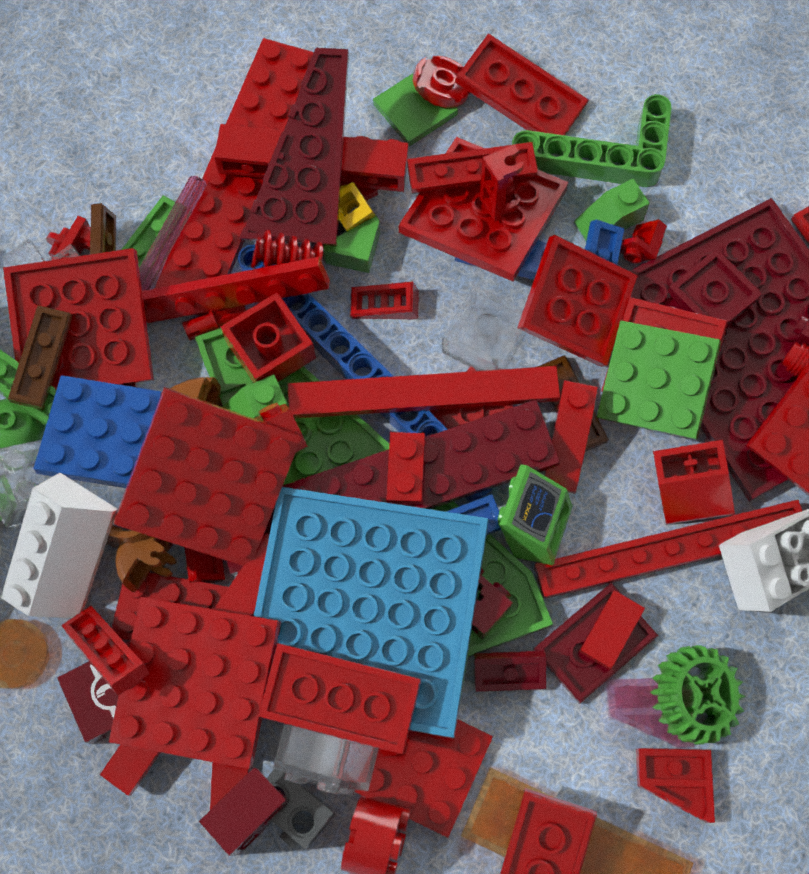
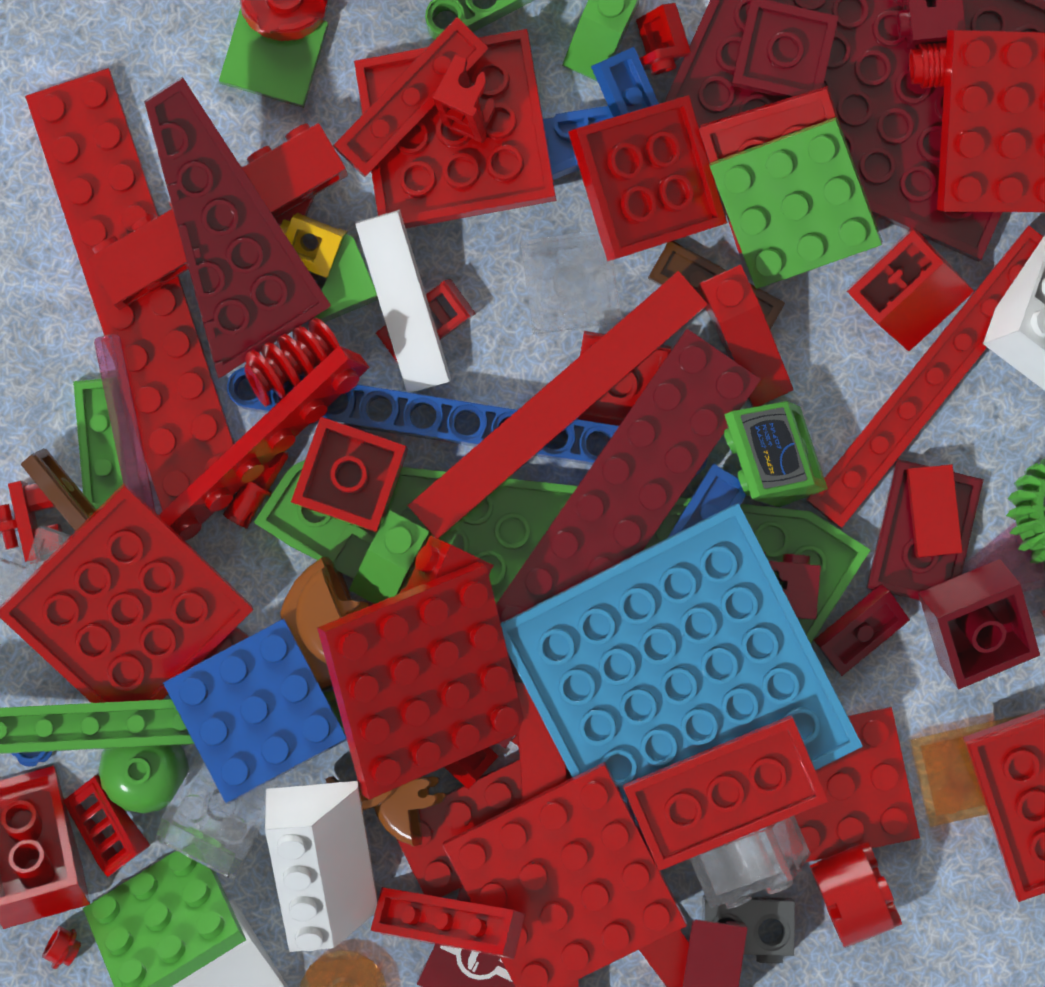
camera: 35 degrees left, 15 degrees up
(40, 357) = (123, 680): reddish brown tile -> none
(379, 274) = (403, 301): none -> white tile
(405, 468) = (607, 507): red plate -> none
(590, 721) = (979, 624): none -> dark red brick

